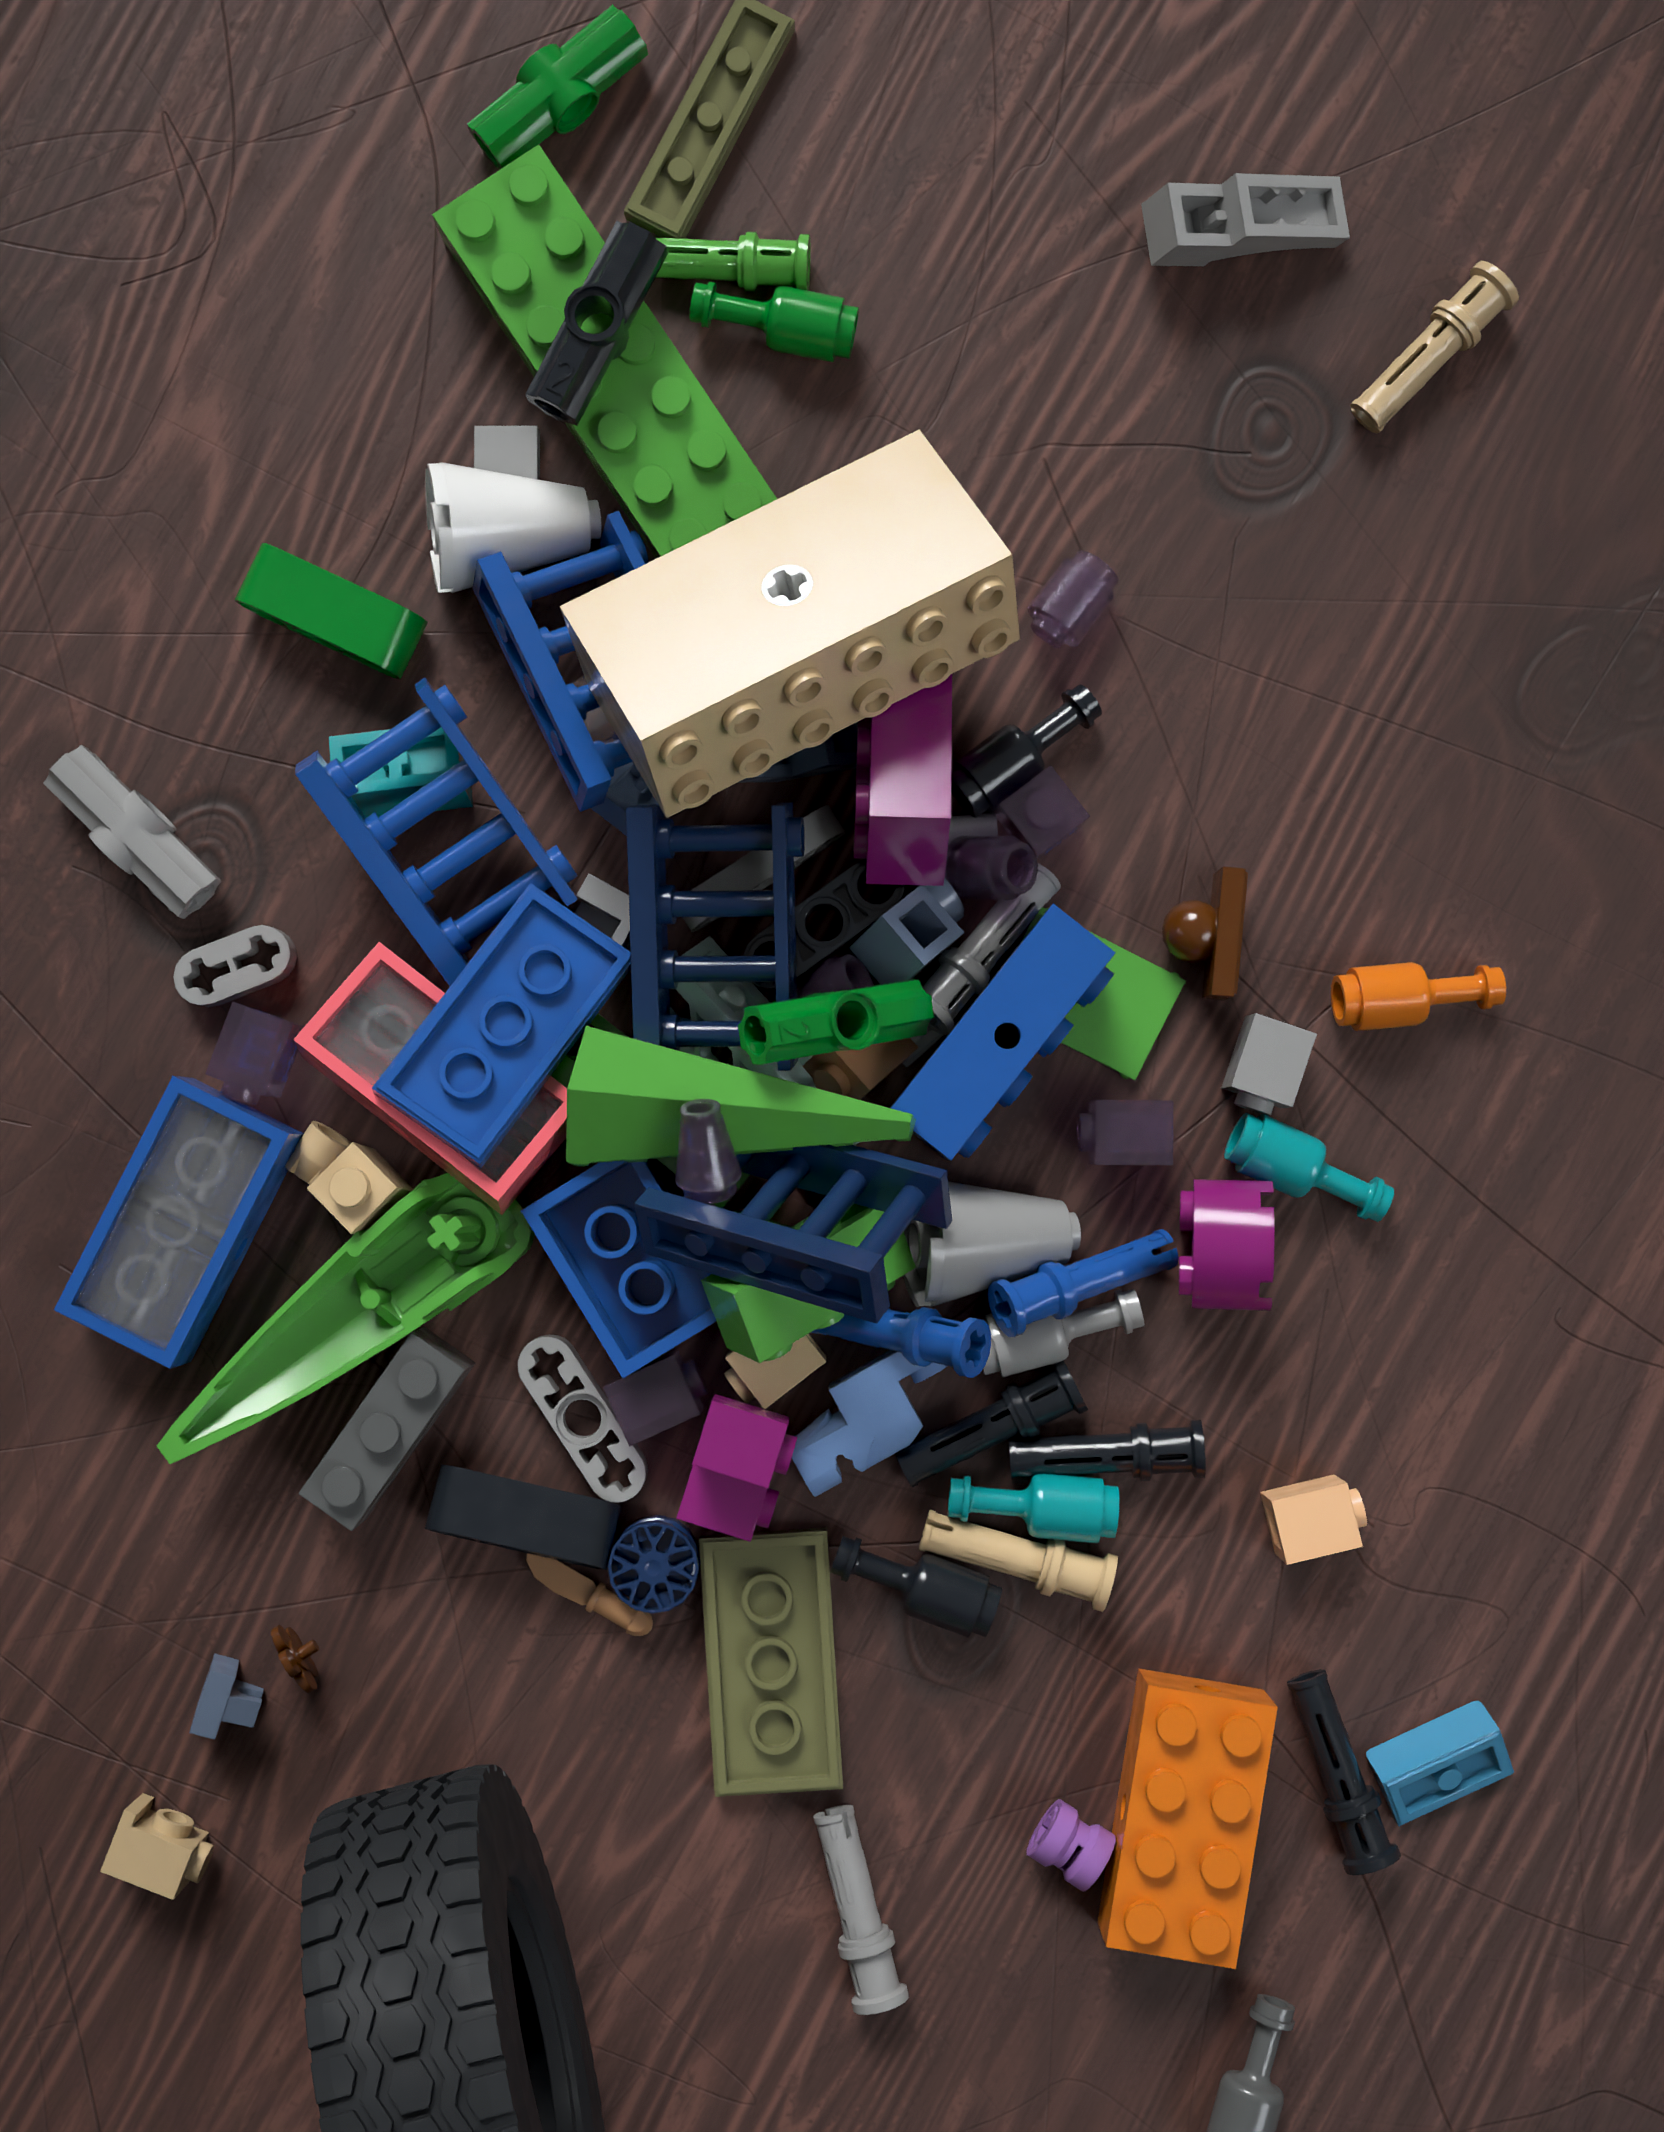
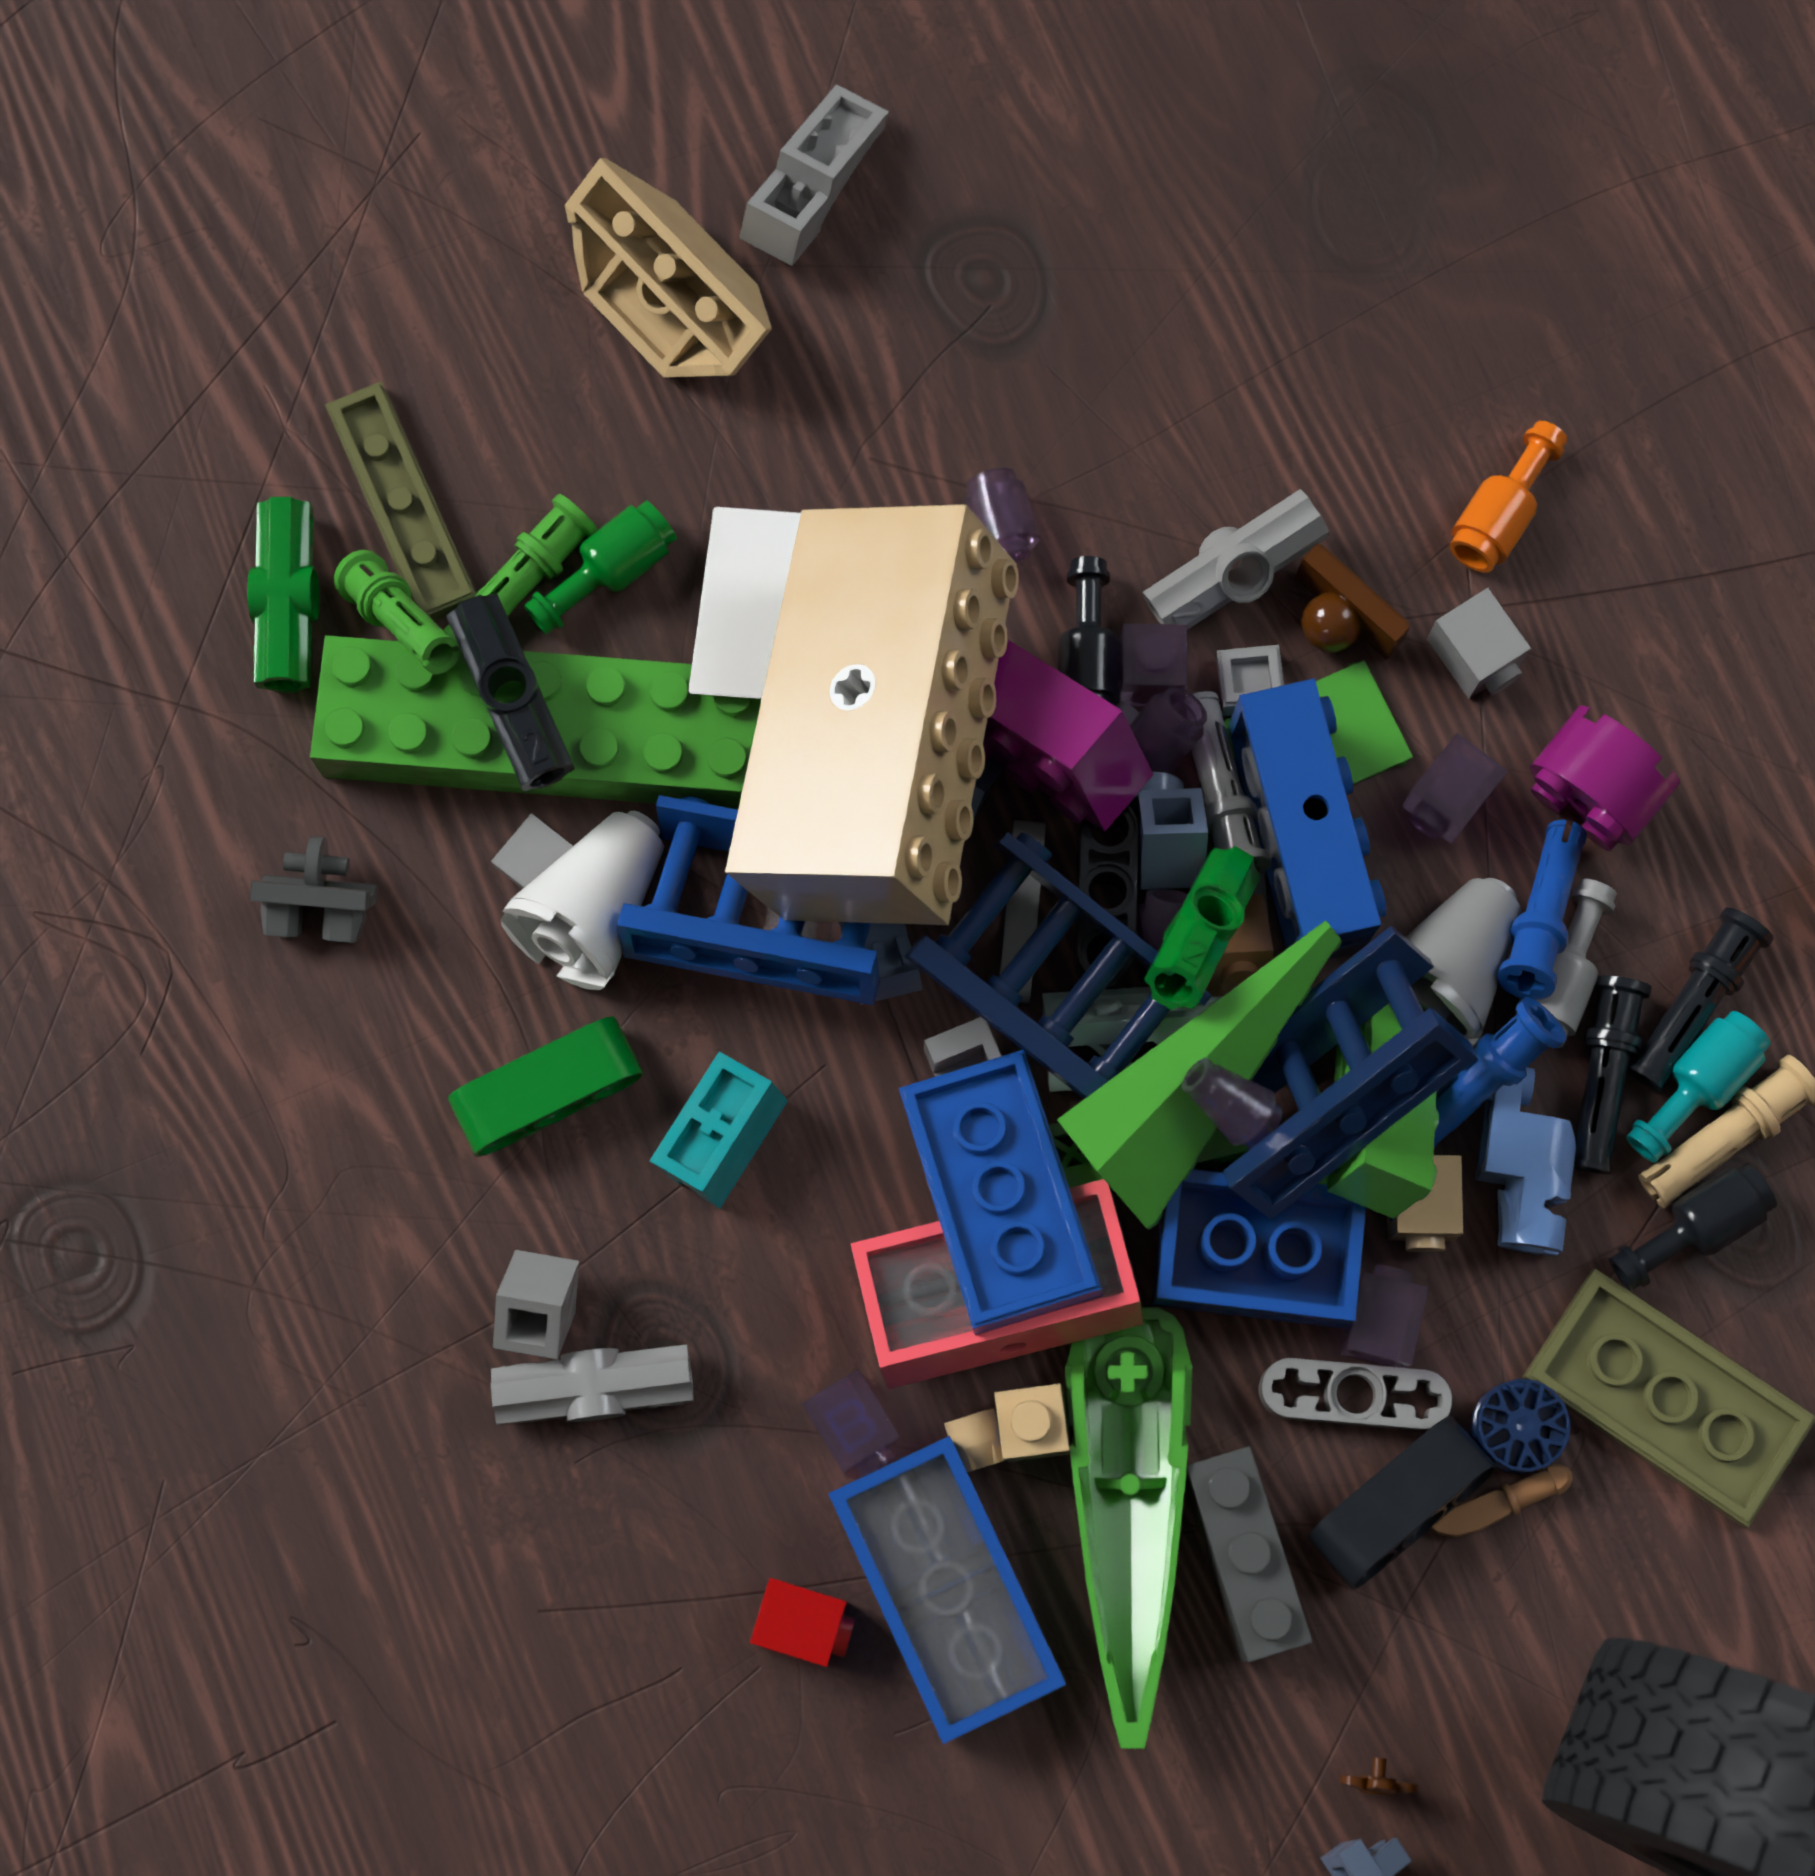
camera: 55 degrees left, 10 degrees down
(77, 1131) = (802, 1623): none -> red brick
(153, 739) = (536, 1304): none -> light grey brick
(229, 952) = (751, 1385): light grey beam -> none
(348, 306) = (285, 896): none -> dark grey hips
(375, 835) = (763, 1181): blue fence -> none
(605, 182) = (388, 603): none -> bright green pin
(735, 1467) = (1489, 1296): magenta brick -> none
(833, 440) = (741, 600): none -> white sticker
(1058, 167) = (662, 277): none -> tan wedge
(1097, 900) = (1247, 672): none -> light grey tile
(1209, 826) = (1263, 546): none -> light grey piece
(1296, 1163) = (1553, 691): teal piece -> none
(1452, 328) = (1018, 90): tan pin -> none

